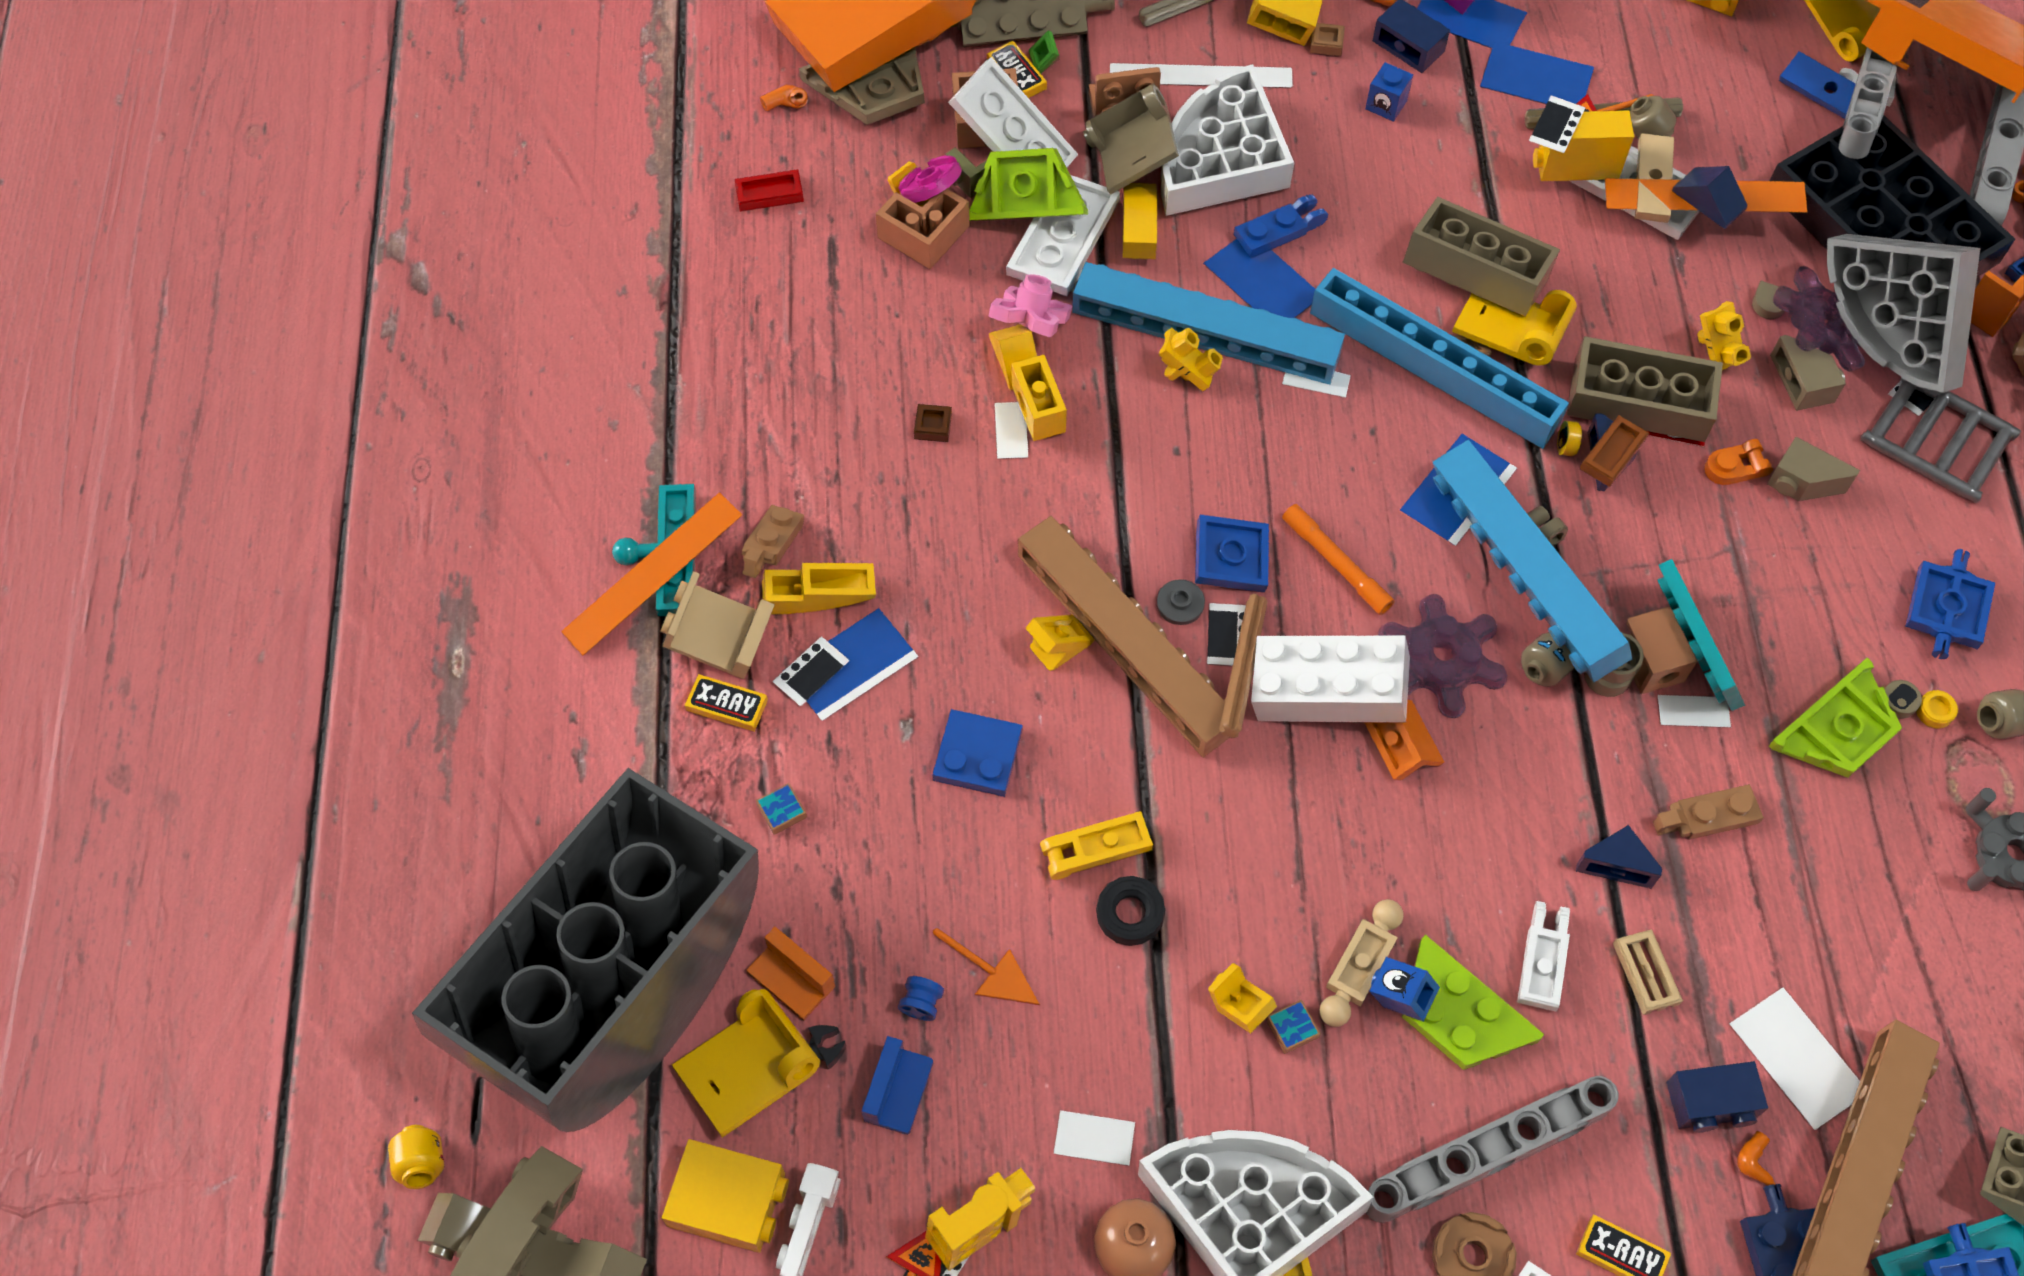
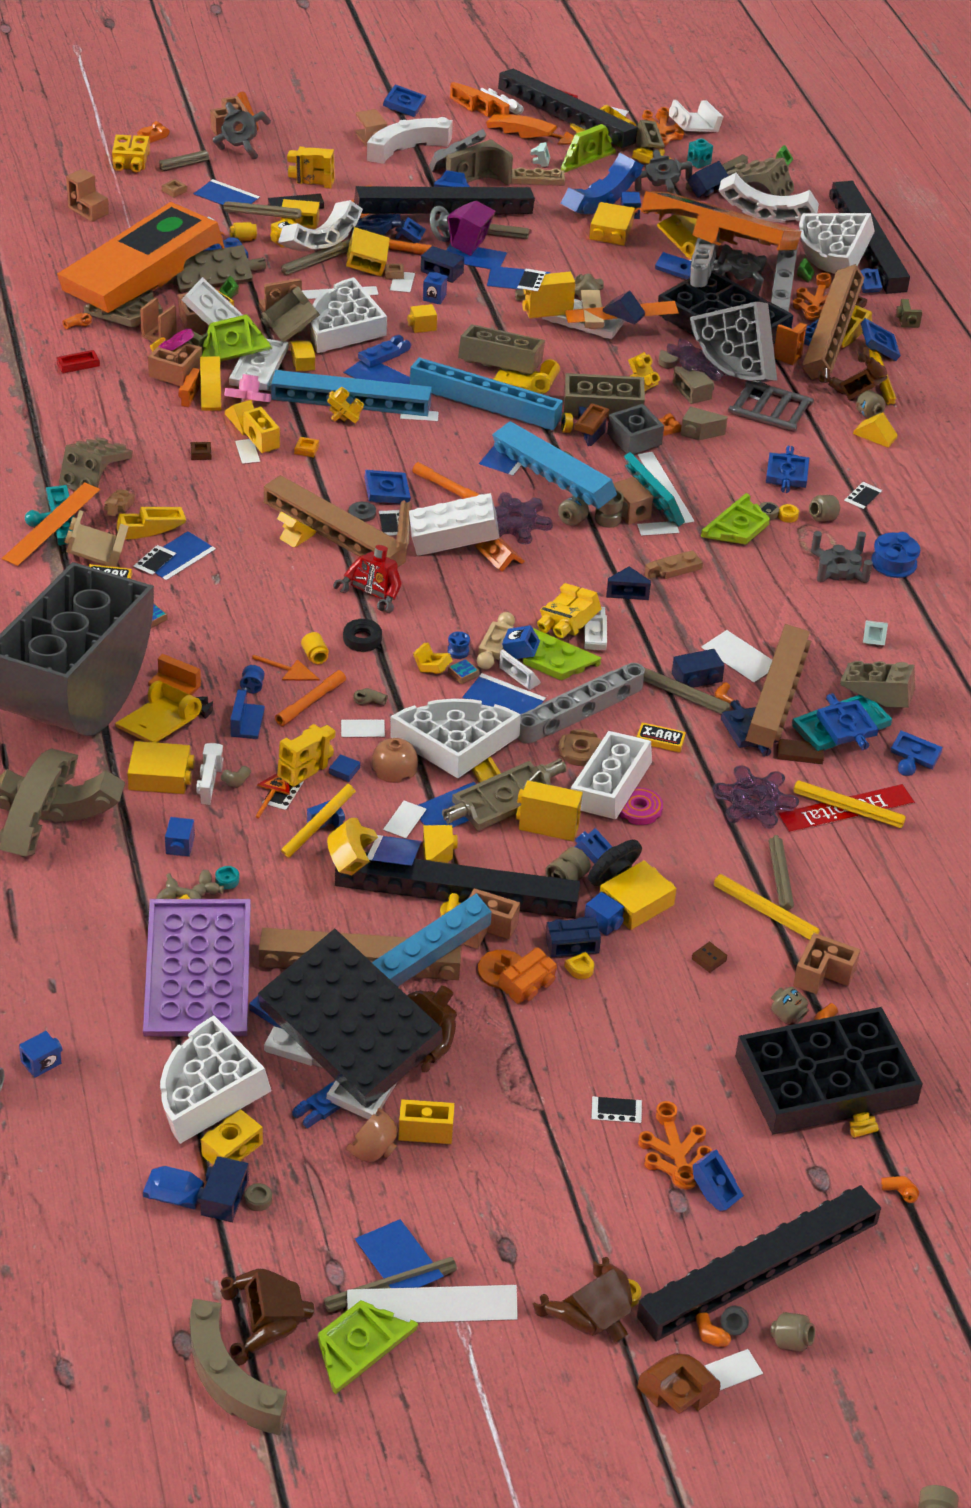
camera: 15 degrees left, 20 degrees down
(741, 432) = (88, 460): none -> dark tan bracket
(855, 1240) = (236, 779): none -> dark tan arm
(901, 120) = (153, 322): none -> nougat piece
(943, 269) = (190, 388): none -> orange plate
(974, 273) = (210, 383): none -> yellow slope
(977, 752) = (260, 582): blue plate -> none
(979, 1082) = (293, 710): none -> orange piece
(1042, 936) = (315, 648): none -> yellow brick
(1044, 1240) = (344, 767): none -> blue tile
(1097, 844) = (336, 610): yellow plate -> none
(1111, 436) = (306, 447): none -> light orange tile
(1117, 1065) = (368, 695): none -> dark tan arm
(1175, 783) = (374, 575): none -> red torso
(1297, 956) = (458, 645): none -> blue wheel
(1338, 69) = (403, 284): none -> white sticker
(1355, 1100) = (494, 691): none -> blue sticker
(1357, 159) = (422, 318): none -> yellow brick
(1391, 1044) = (518, 670): none -> white slope
(1502, 921) = (569, 611): none -> yellow hips
(1646, 1005) = (649, 632): tan tile -> none
(1681, 1139) = (685, 691): none -> dark tan axle
(1688, 477) = (635, 429): none -> dark grey brick
(1721, 608) = (652, 464): none -> white sticker
(1931, 115) = (742, 265): none -> dark grey plate

